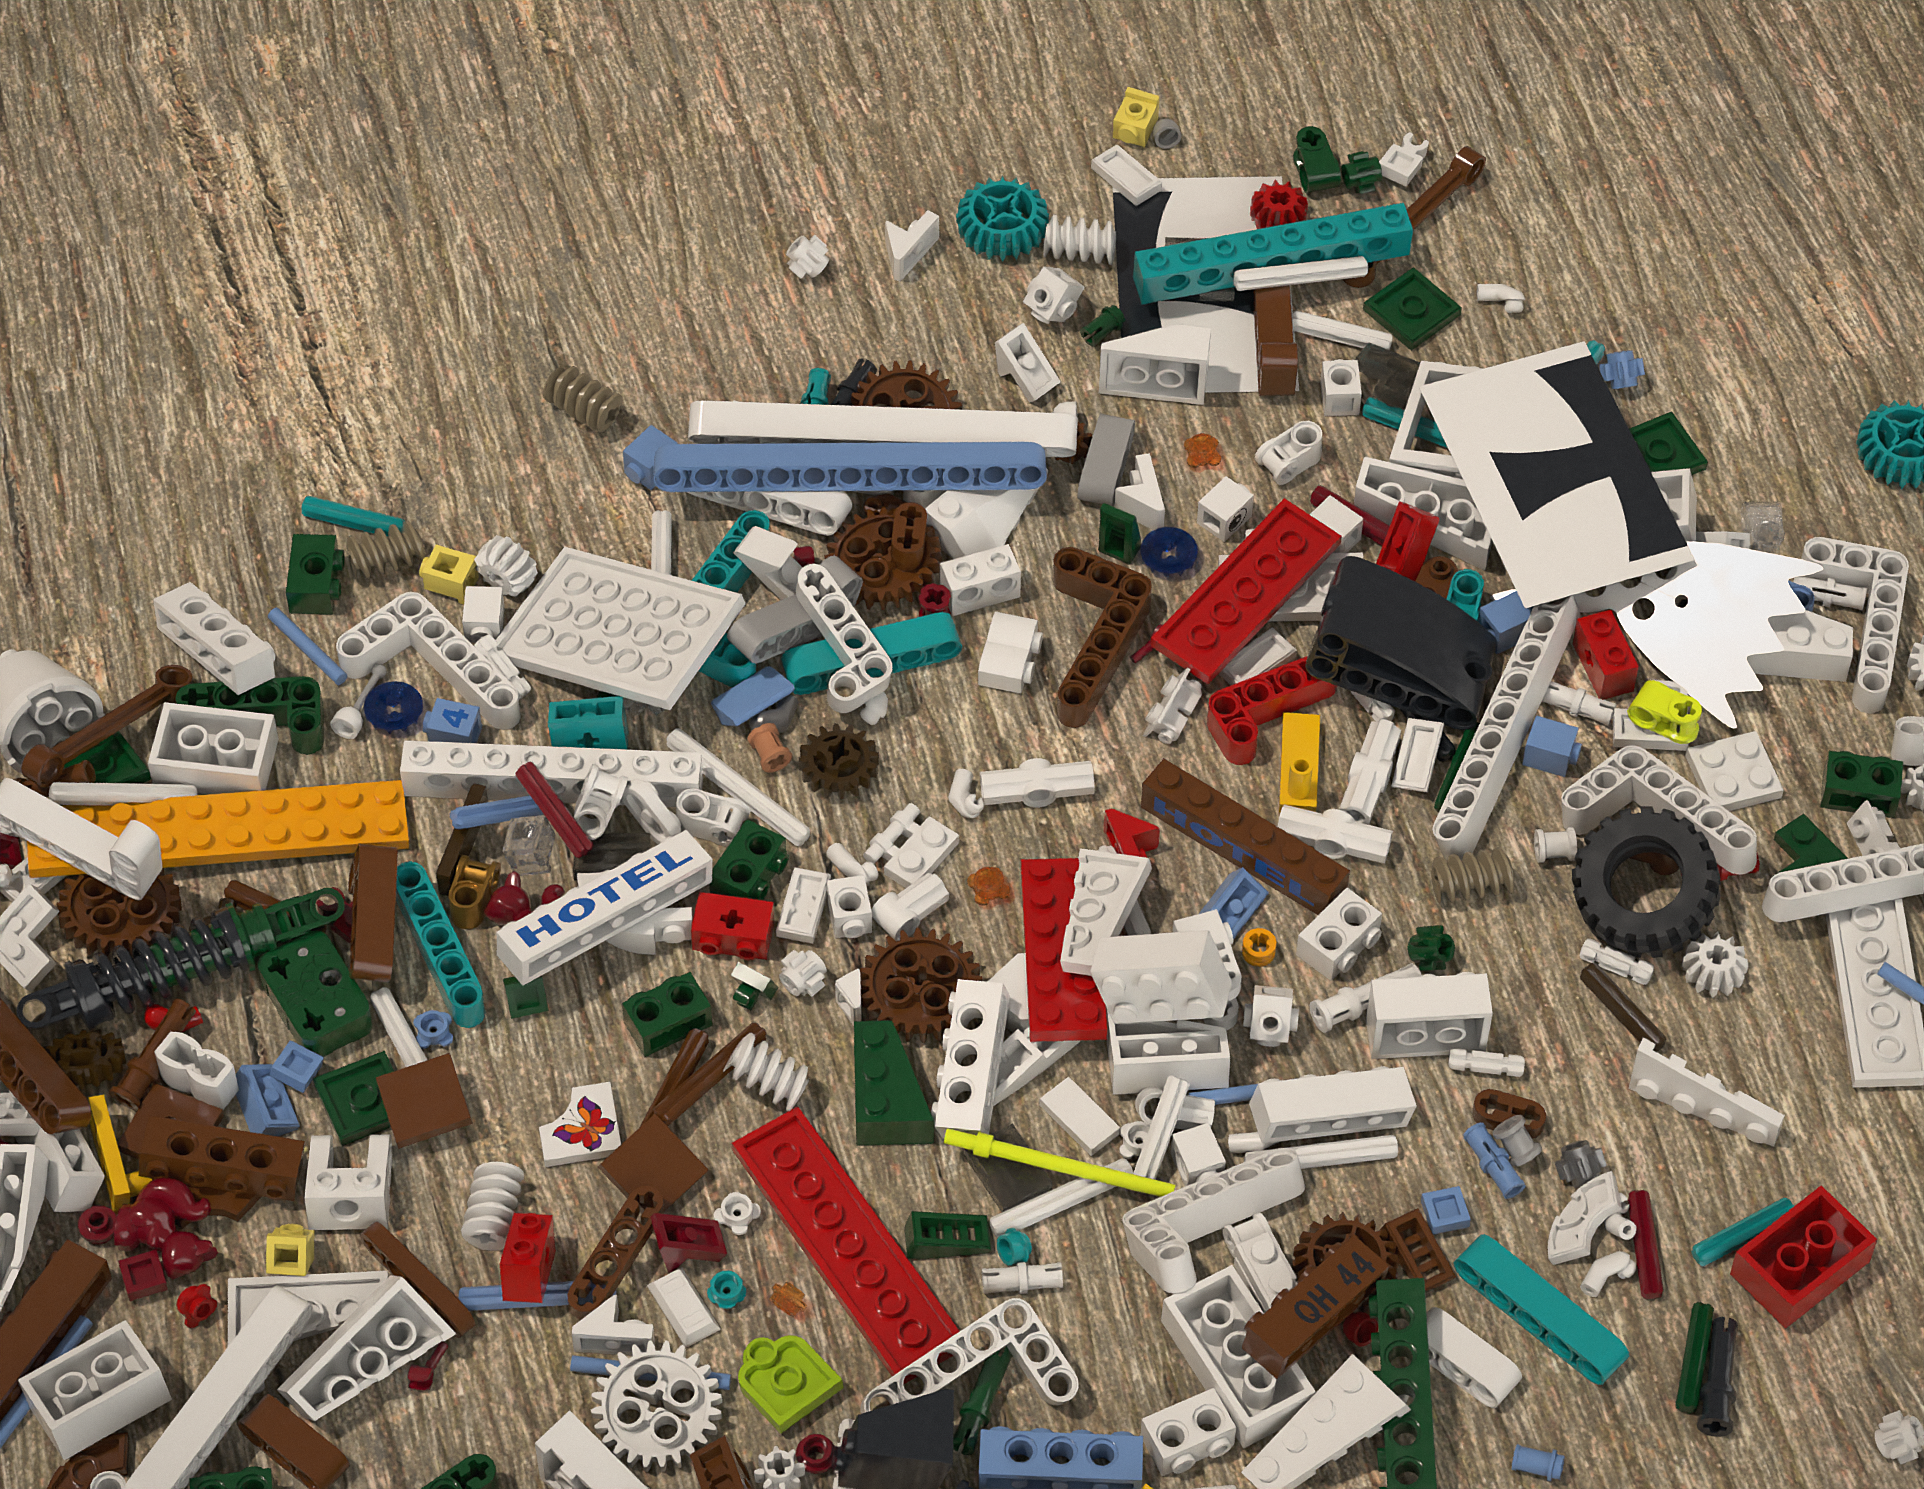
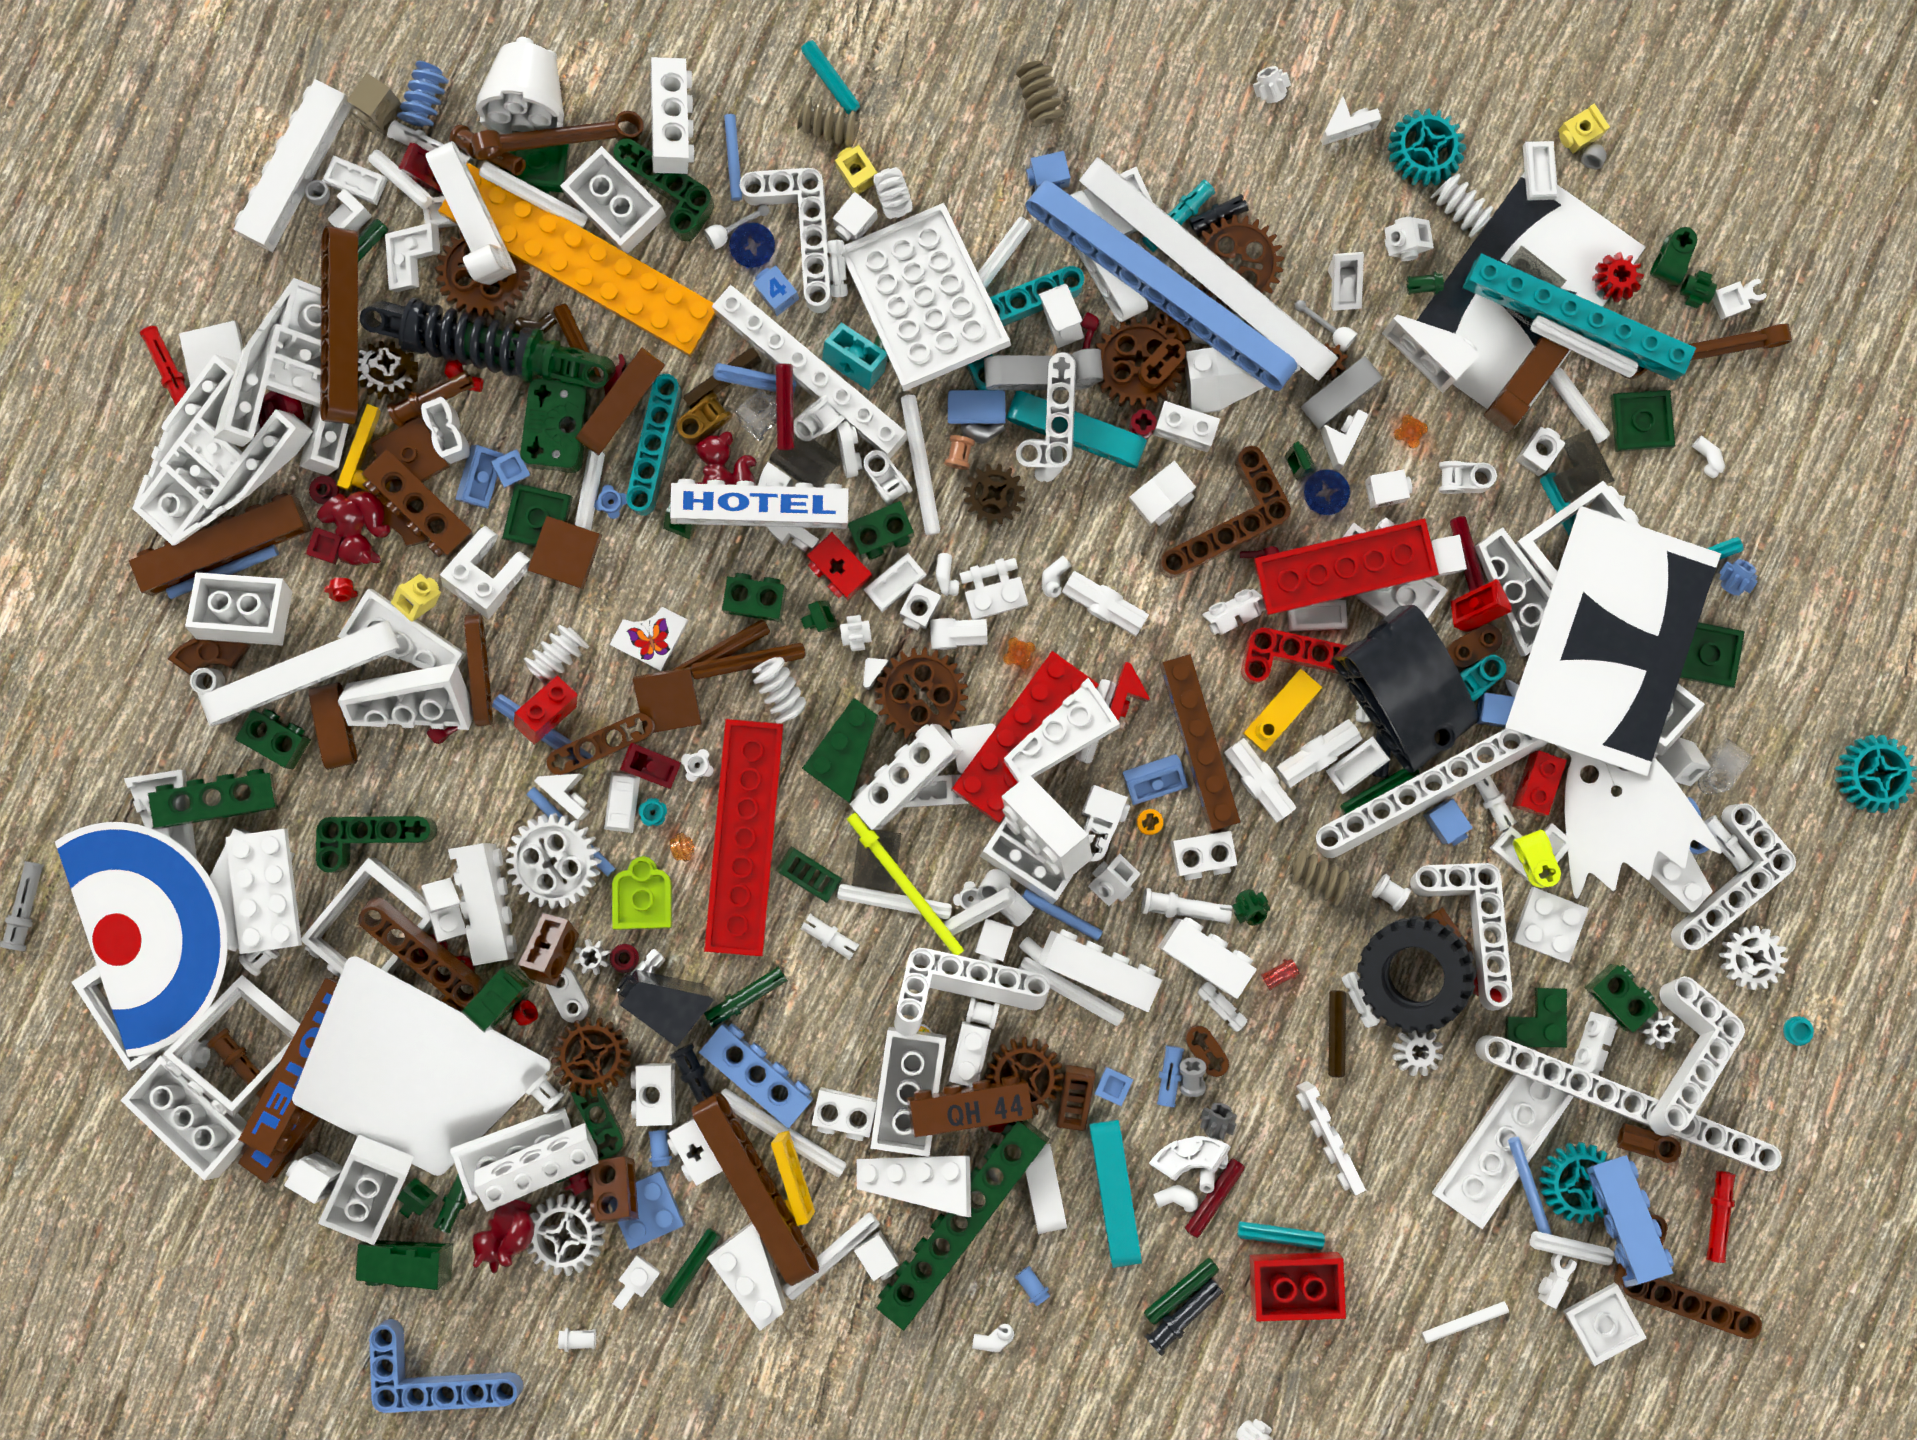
camera: 40 degrees right, 30 degrees up
(311, 556) = (775, 90): dark green brick -> none
(968, 1357) = (748, 977): white beam -> none
(1014, 1247) = (840, 914): teal plate -> none
(1079, 1116) = (949, 854): white tile -> none
(1519, 984) = (1280, 974): none -> clear red pin

